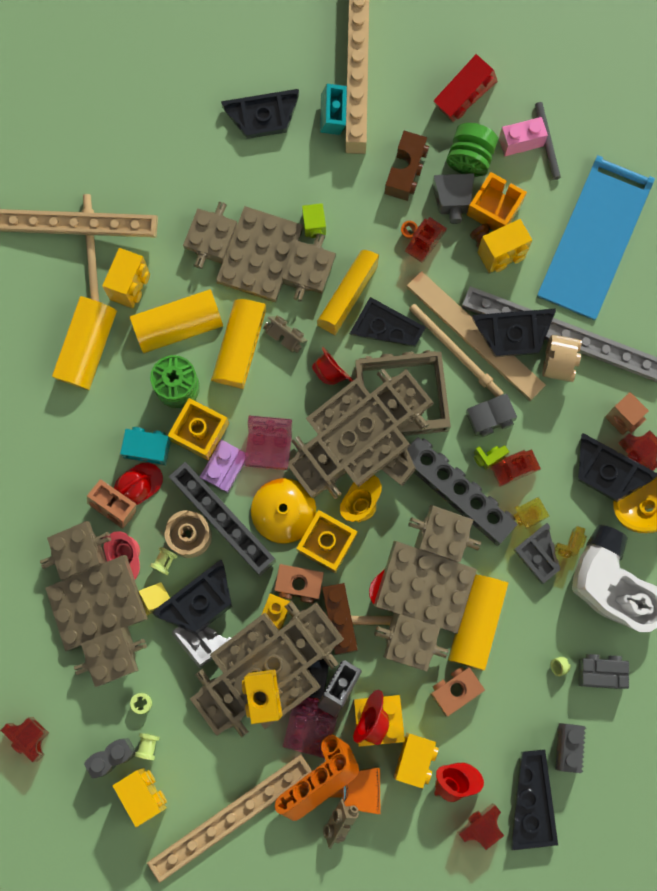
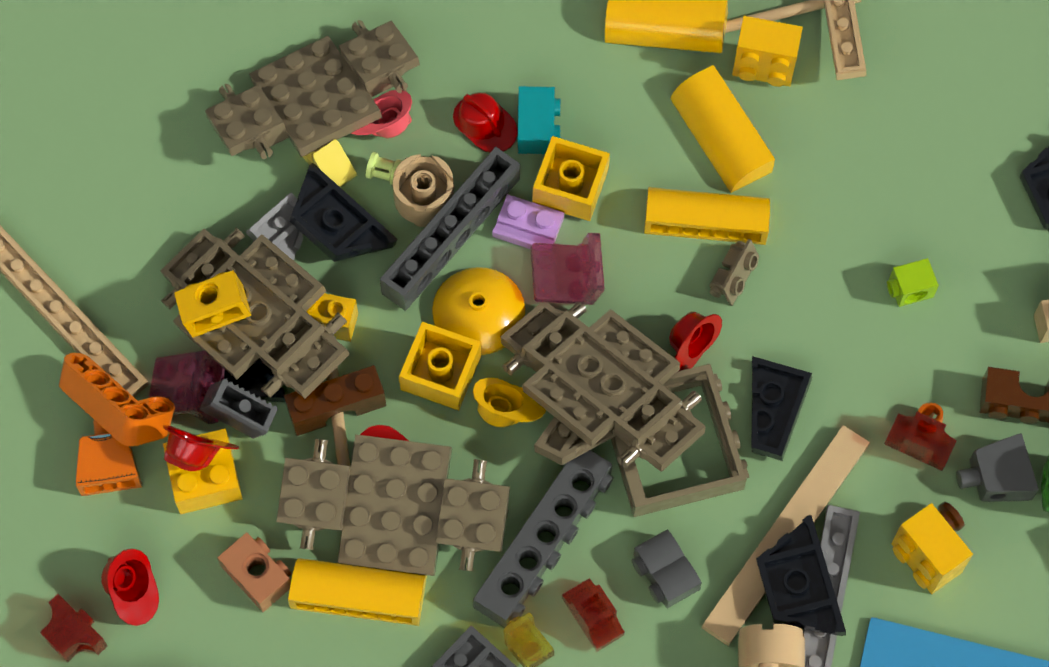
camera: 80 degrees right, 10 degrees down
(26, 738) = (133, 49): clear red brick -> none
(111, 504) = (449, 89): nougat brick -> none
(114, 754) = (118, 147): dark grey brick -> none
(135, 699) = (198, 168): yellowish green bush -> none
(140, 796) = (71, 187): yellow brick -> none
(147, 746) = (137, 189): yellowish green bush -> none
(177, 392) = (633, 152): bright green wheel -> none
(259, 252) = (848, 219): dark tan piece -> none
(288, 574) = (382, 324): nougat brick -> none
(339, 823) = (58, 438): dark tan hinge -> none
(348, 291) = (812, 344): yellow brick -> none
(415, 760) = (152, 521): yellow brick -> none
(484, 379) = (721, 554): tan bar -> none
(494, 456) = (605, 578): lime bracket -> none
(495, 207) = (997, 535): light orange piece -> none

